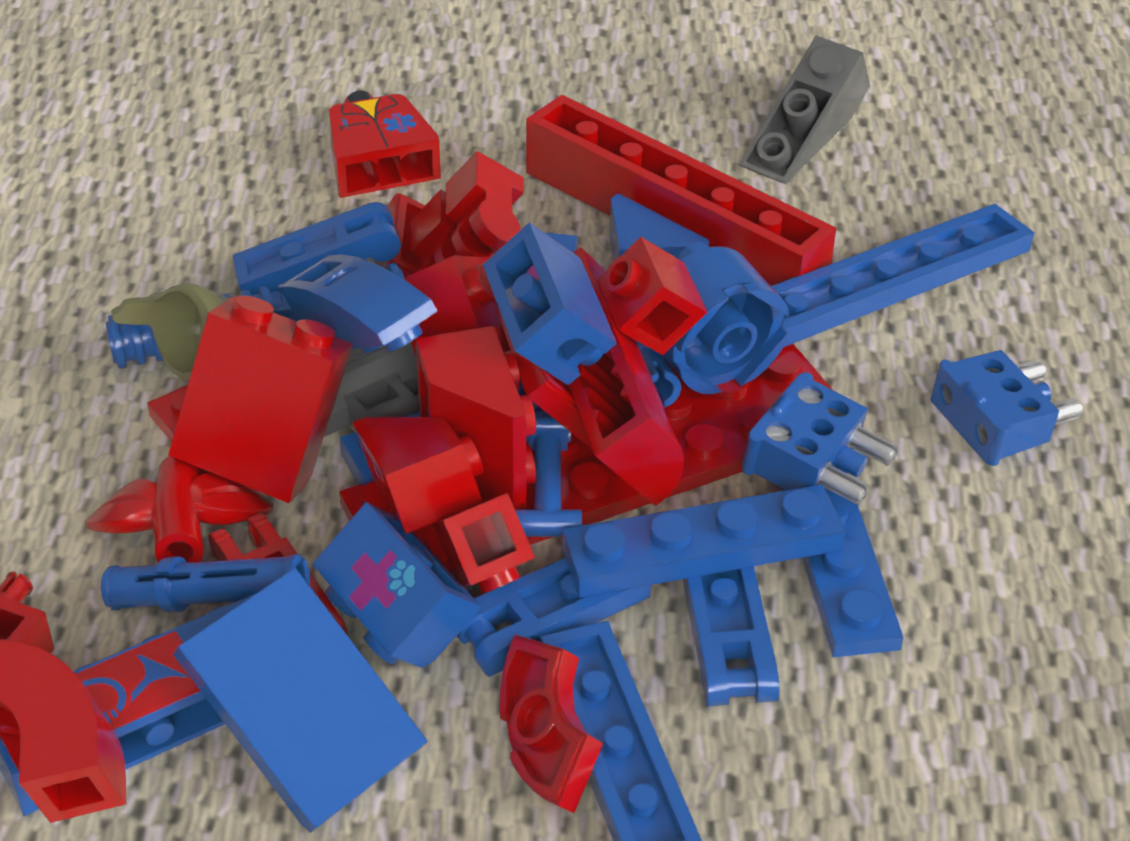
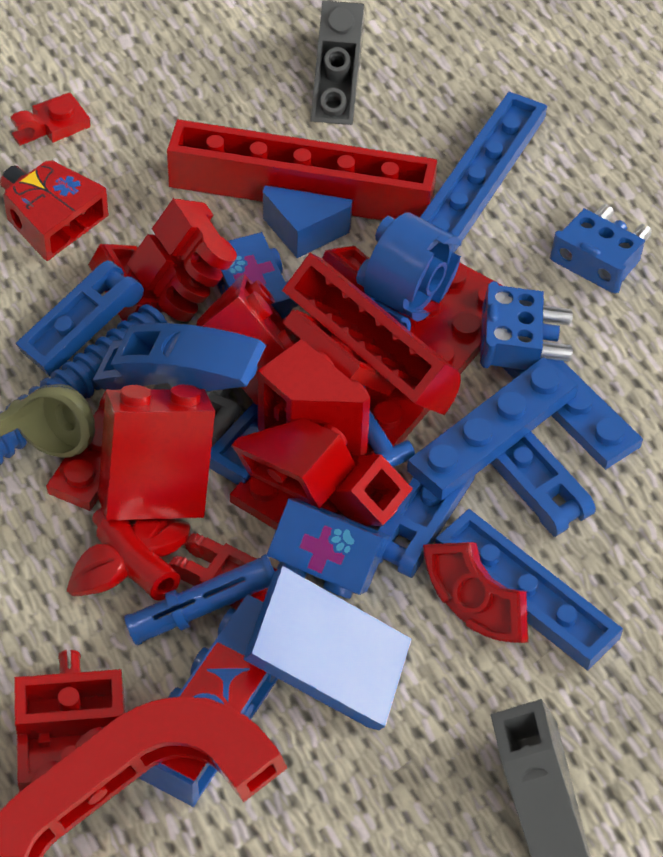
camera: 30 degrees left, 10 degrees up
(452, 72) = (54, 118): none -> red plate
(551, 319) = (331, 310): blue brick -> none
(651, 296) = (381, 271): red brick -> none

